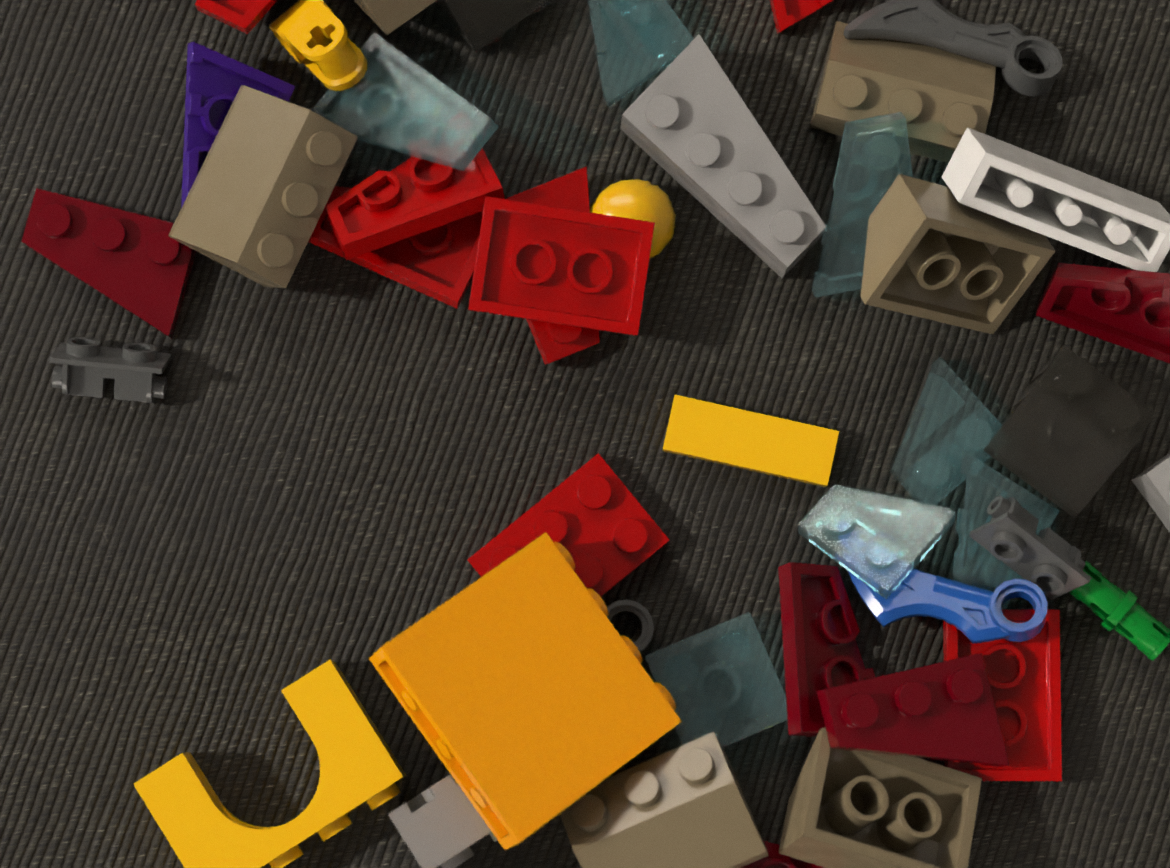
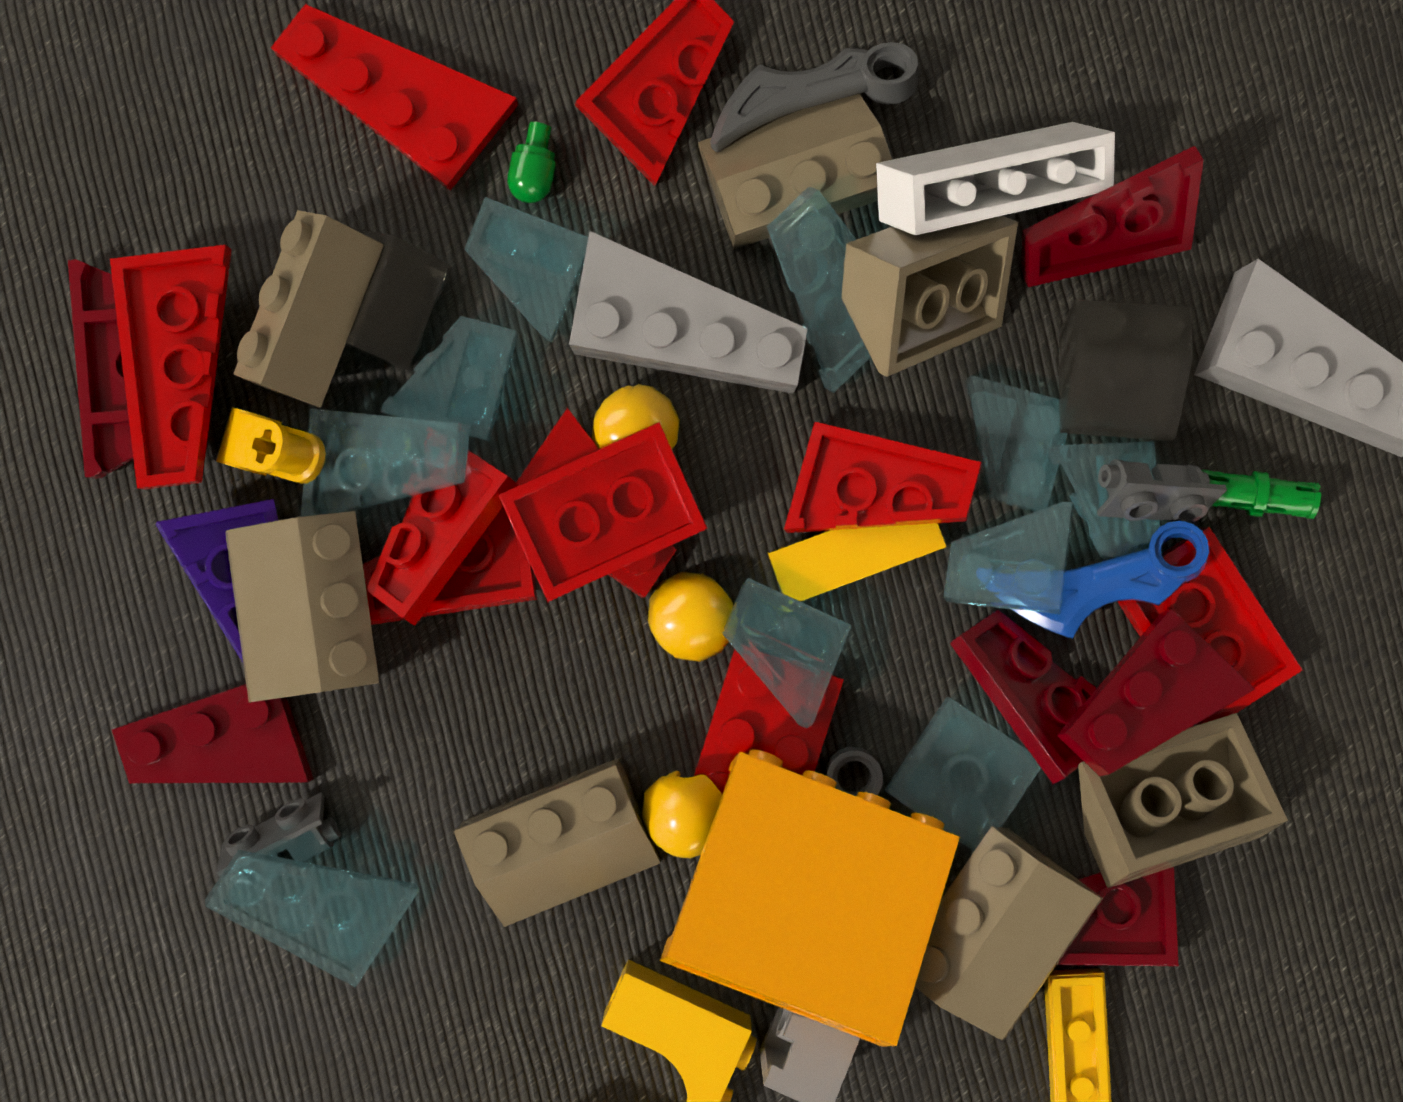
camera: 30 degrees left, 5 degrees up
(105, 442) = (312, 909): none -> clear light blue wing
(342, 521) = (557, 843): none -> dark tan slope
(460, 556) = (680, 813): none -> yellow hair
(514, 86) = (460, 378): none -> clear light blue wing
(576, 407) = (690, 616): none -> yellow hair
(640, 477) = (786, 646): none -> clear light blue wing
(802, 392) = (877, 482): none -> red wing

